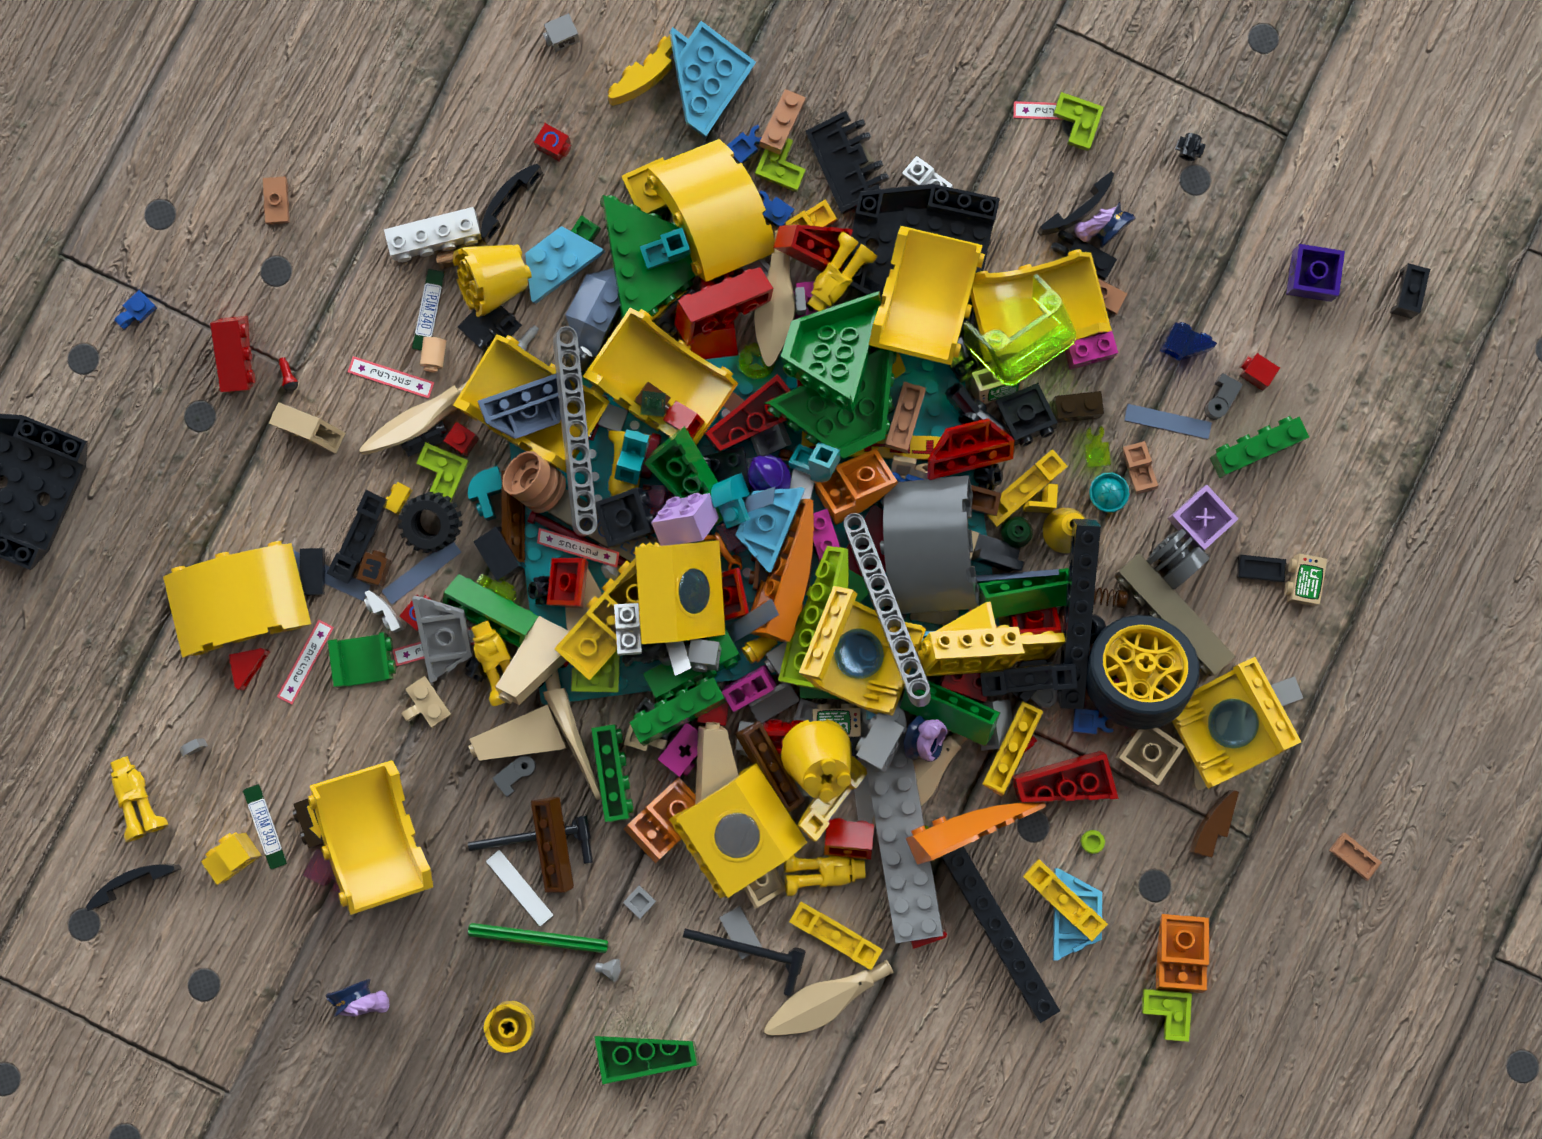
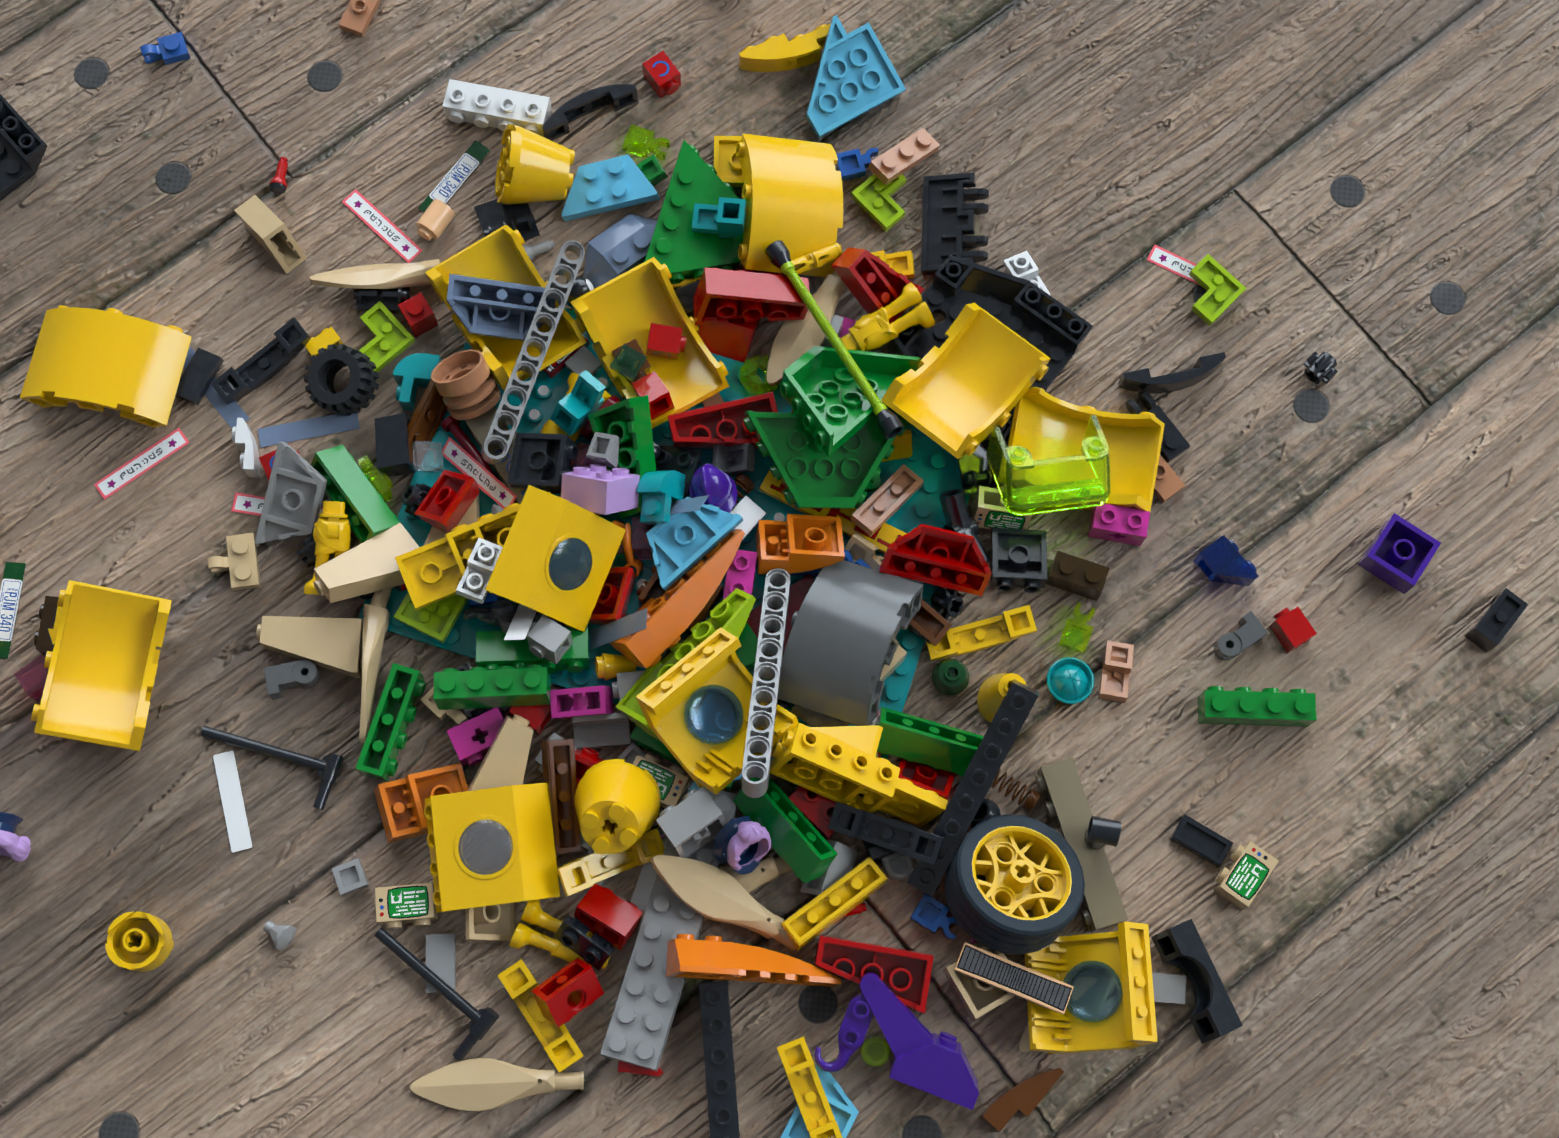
camera: 25 degrees right, 10 degrees down
(233, 353) = (237, 129): red wedge -> none
(246, 665) = (79, 437): red slope -> none
(361, 660) = (197, 487): green panel -> none
(374, 568) = (261, 401): reddish brown brick -> none
(445, 259) = (494, 138): medium nougat slope -> none
(530, 551) = (427, 456): none -> clear tile
(537, 938) = (222, 863): green axle -> none
(552, 845) = (290, 770): reddish brown slope -> none
(563, 207) = (642, 141): none -> clear neon green plate
(637, 1057) = (255, 1044): green wedge -> none
(670, 370) = (665, 341): none -> red brick
(671, 485) = (604, 449): none -> light grey slope
(694, 902) = (405, 905): none -> brick
(731, 261) = (887, 421): none -> lime hose
(757, 247) = (811, 260): none -> yellow pin
(777, 210) = (854, 237): blue plate -> none
(816, 462) = (769, 499): teal brick -> none
(831, 866) = (574, 936): none -> black hinge
(848, 909) = (568, 992): none -> red brick
(925, 786) = (718, 896): none -> tan animal
(997, 554) = (917, 688): black panel -> none
(1017, 575) = (927, 718): sand blue sticker -> none
(1048, 503) = (987, 658): yellow panel -> none
(1104, 225) = (1192, 403): piece -> none
(1129, 832) = (920, 1057): none -> dark purple slope
(1168, 421) = (1169, 638): sand blue sticker -> none
(1173, 742) = (1013, 978): none -> tile
(1177, 558) = (1112, 782): dark grey wheel -> none
(1191, 603) = (1102, 832): none -> black piece
(1203, 518) = (1159, 754): lavender brick -> none
(1326, 693) = (1213, 1009): none -> black arch

